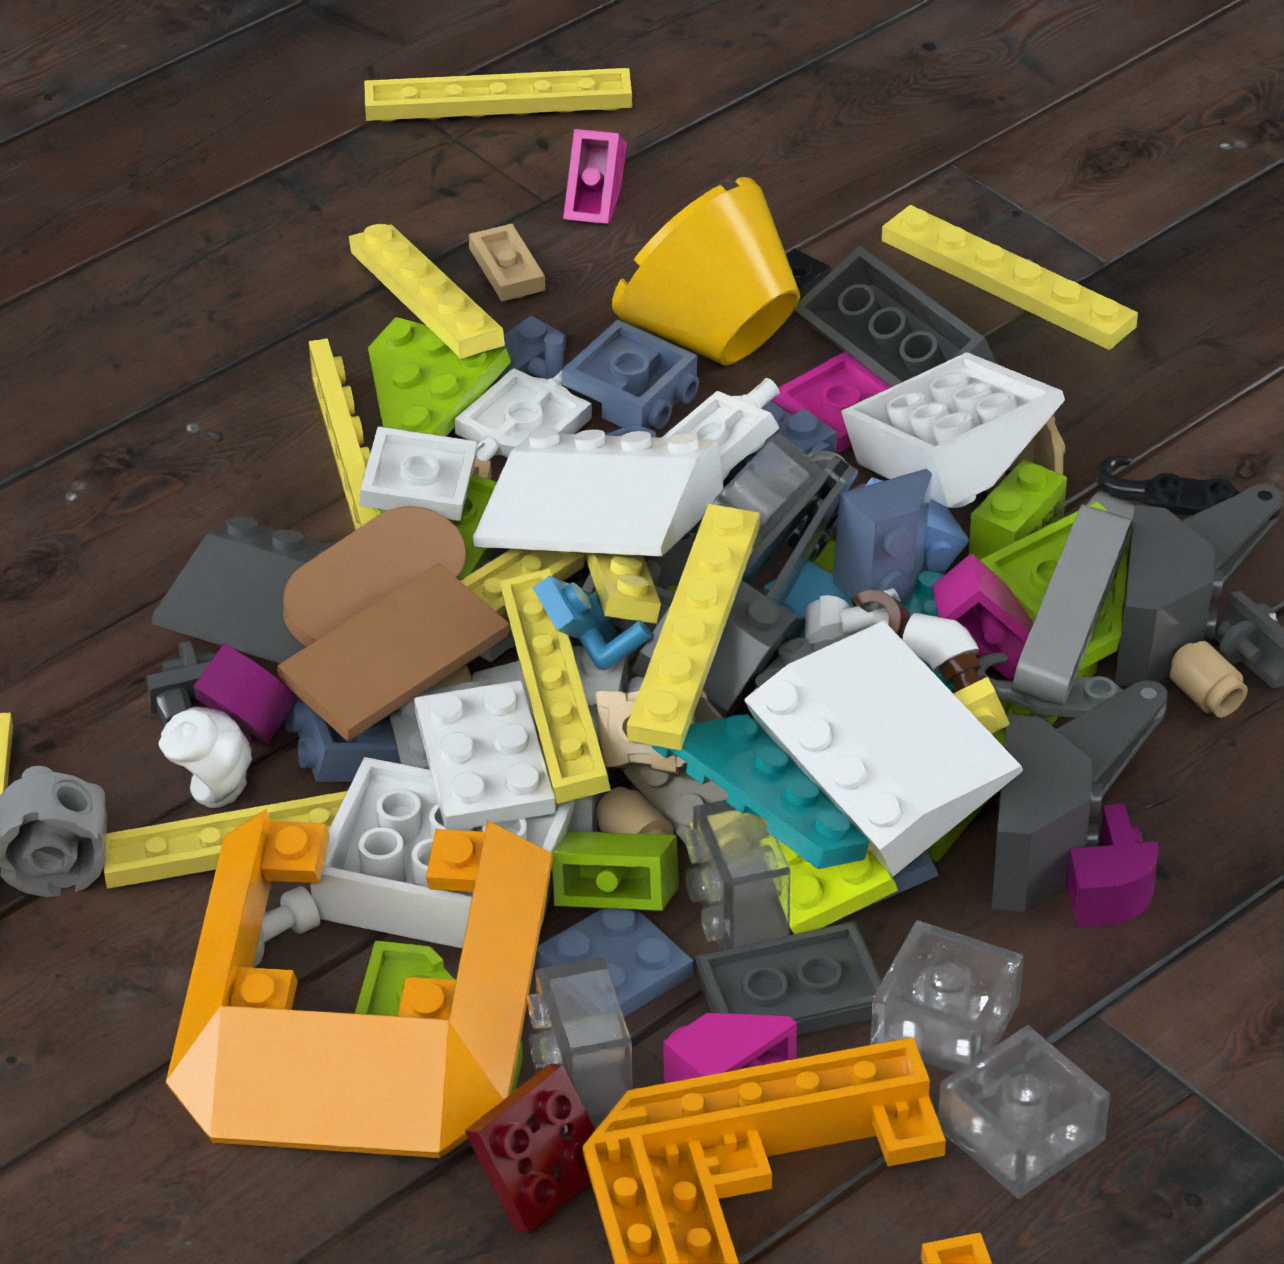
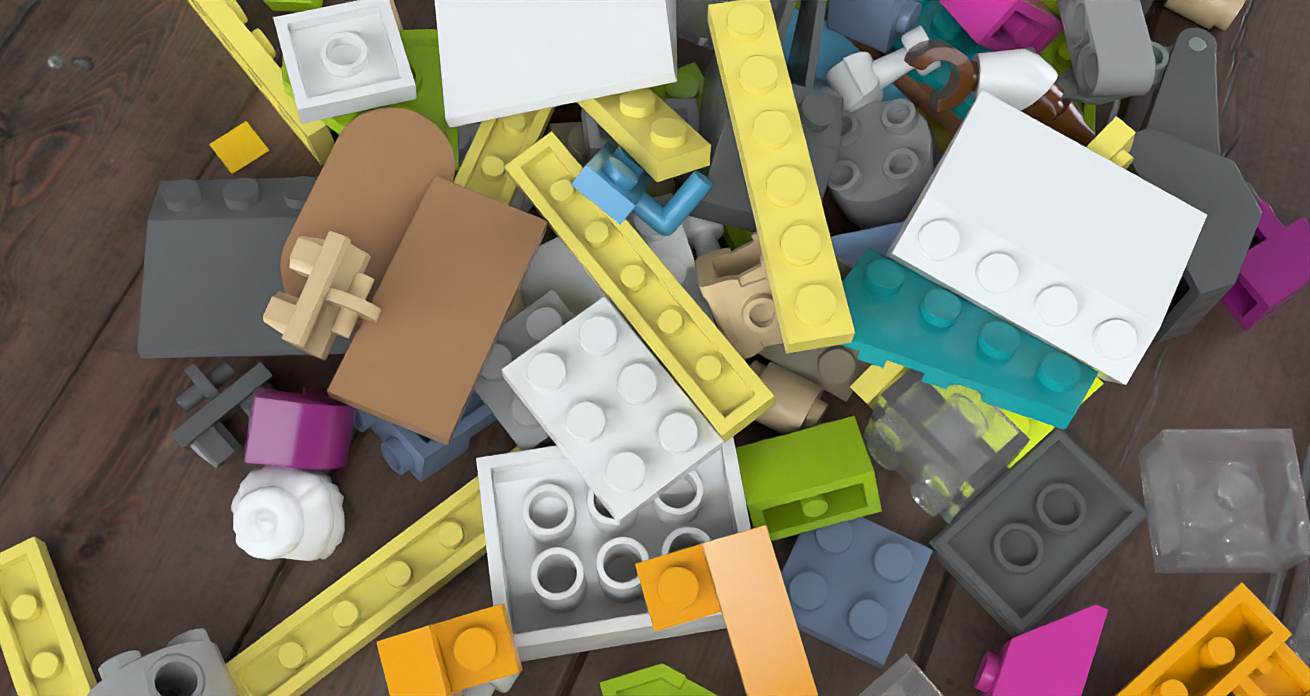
camera: 25 degrees left, 25 degrees up
(310, 527) = (239, 147): none -> yellow sticker
(310, 604) = (330, 298): none -> tan hips

